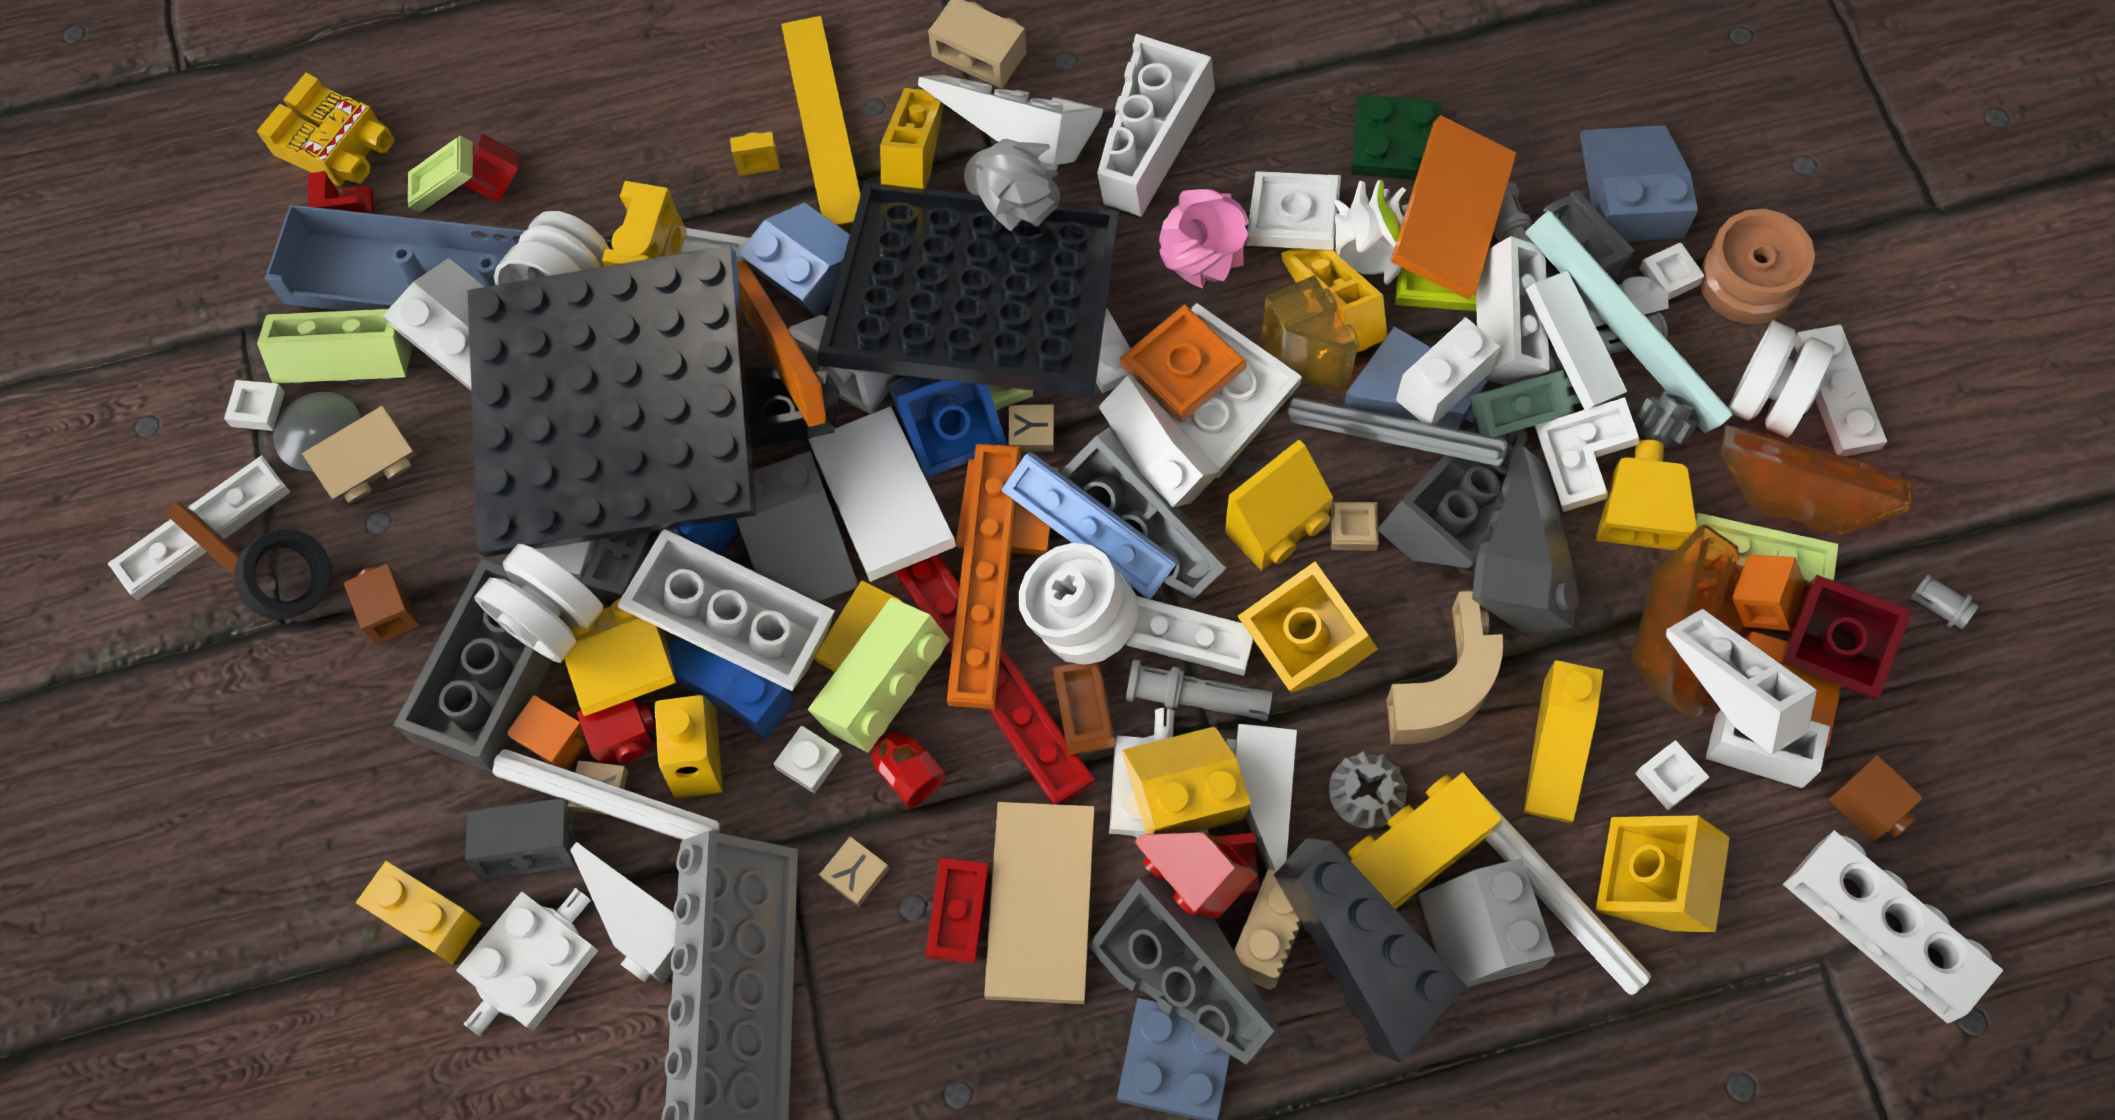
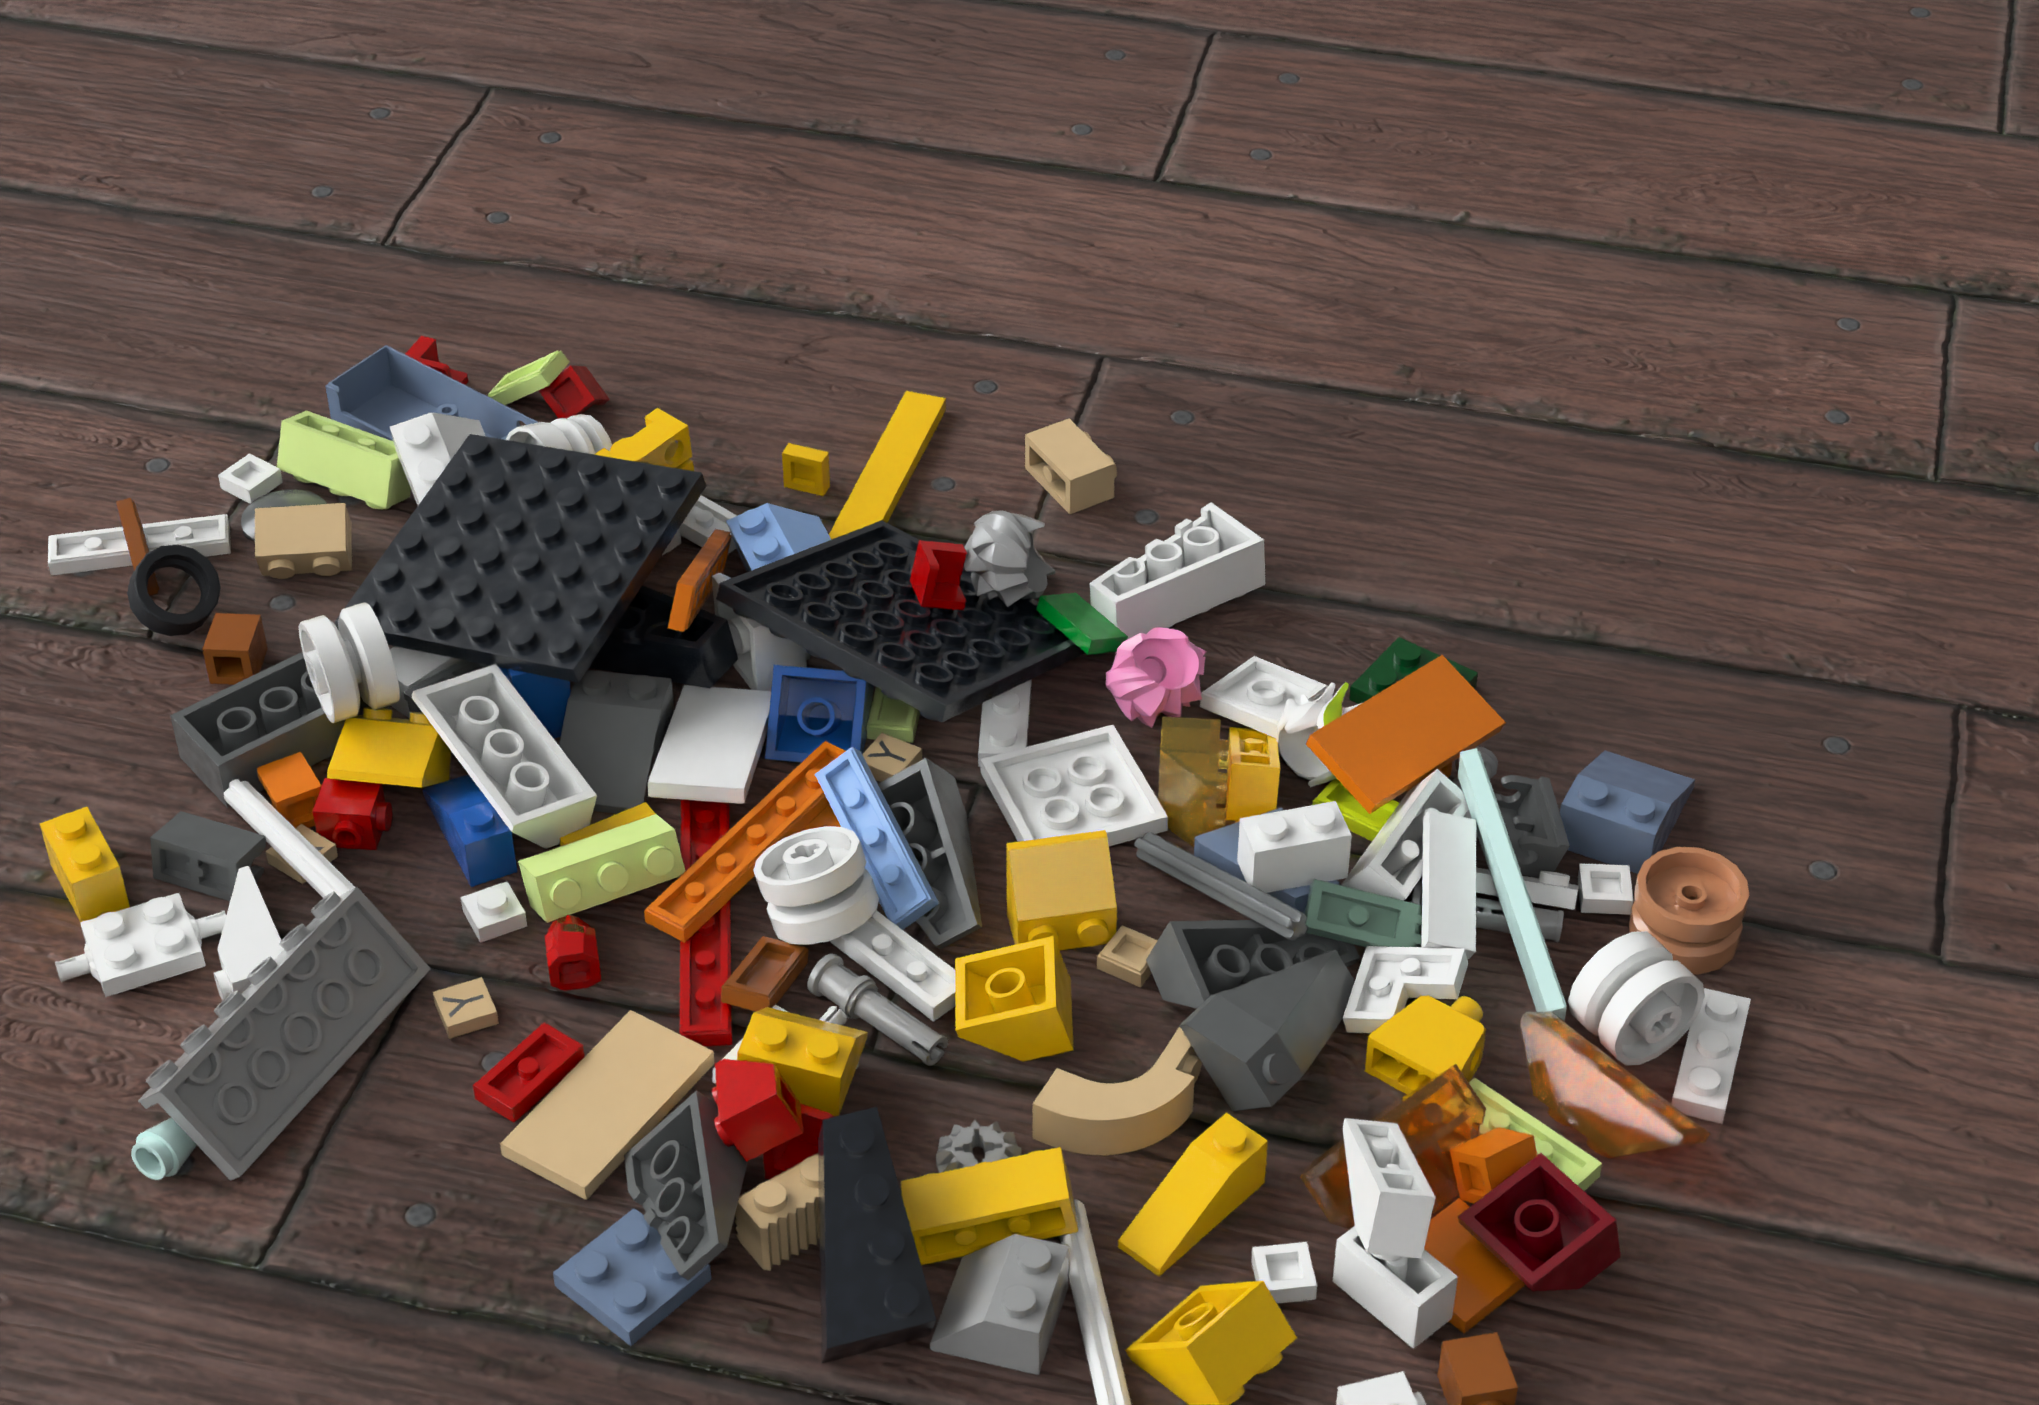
camera: 25 degrees right, 25 degrees down
(325, 132) = (460, 319): yellow hips -> none
(689, 739) = (399, 844): yellow torso -> none
(911, 140) = (949, 509): yellow slope -> none
(970, 232) = (938, 575): none -> red panel
(1012, 116) = (1066, 540): white wedge -> none
(1106, 212) = (1081, 623): none -> green tile
(1157, 444) = (987, 809): white slope -> none
(1183, 363) = (1061, 759): orange tile -> none
(1267, 769) = (897, 1083): white slope -> none
(1667, 419) = (1502, 993): dark grey gear -> none
(1945, 602) = (1690, 1272): light grey pin -> none

